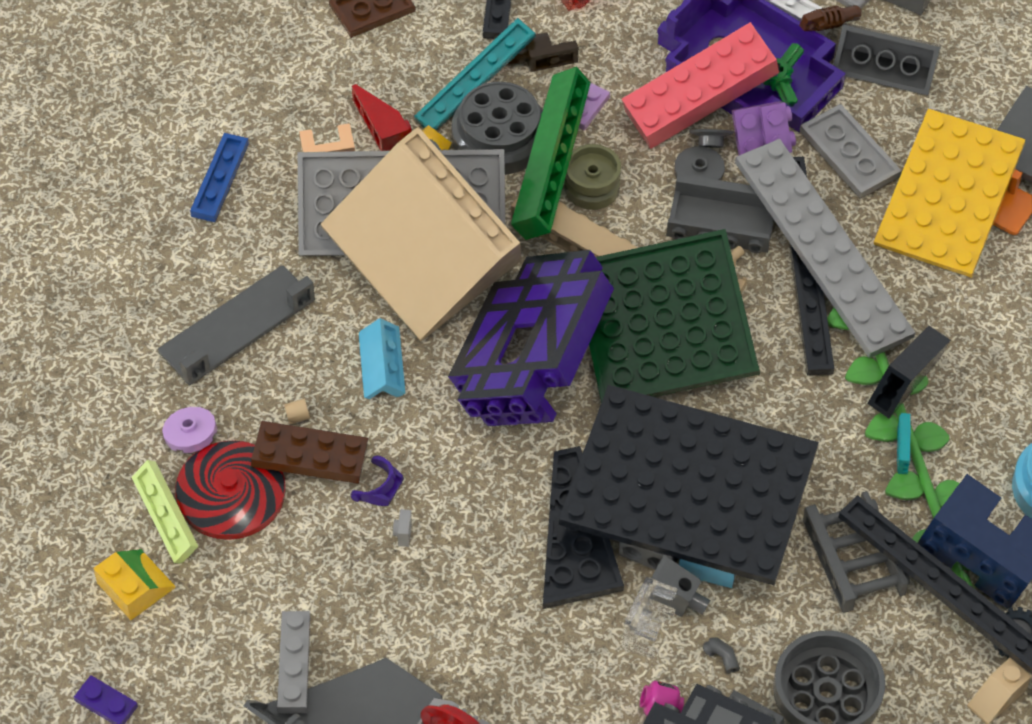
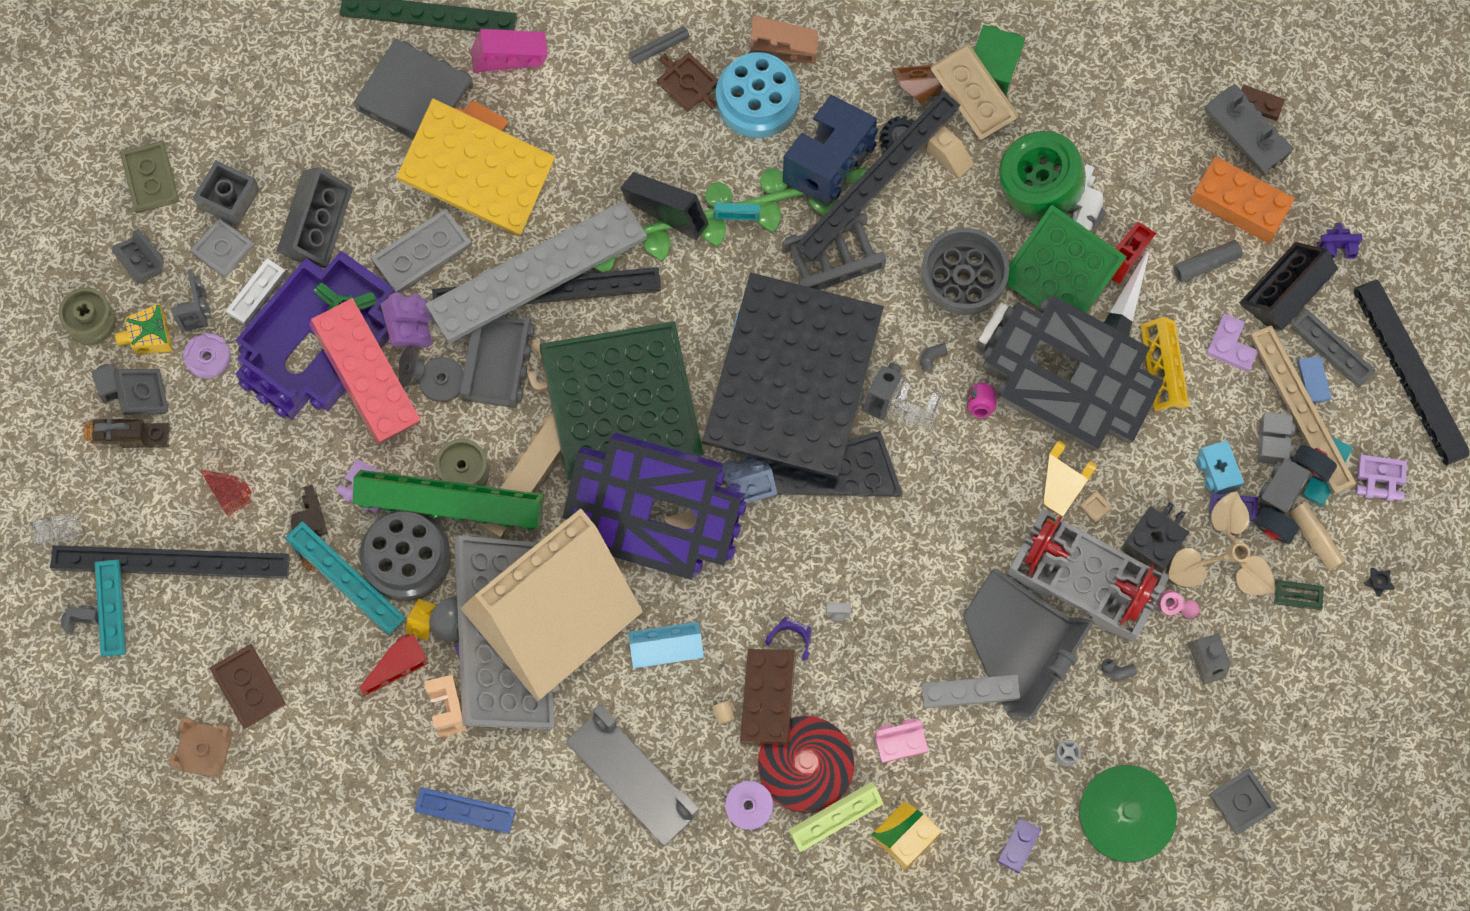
camera: 95 degrees left, 15 degrees up
(243, 585) = (900, 741): none -> bright pink bracket
(562, 438) = (752, 475): none -> sand blue bracket
(829, 18) = (276, 261): reddish brown hinge -> none

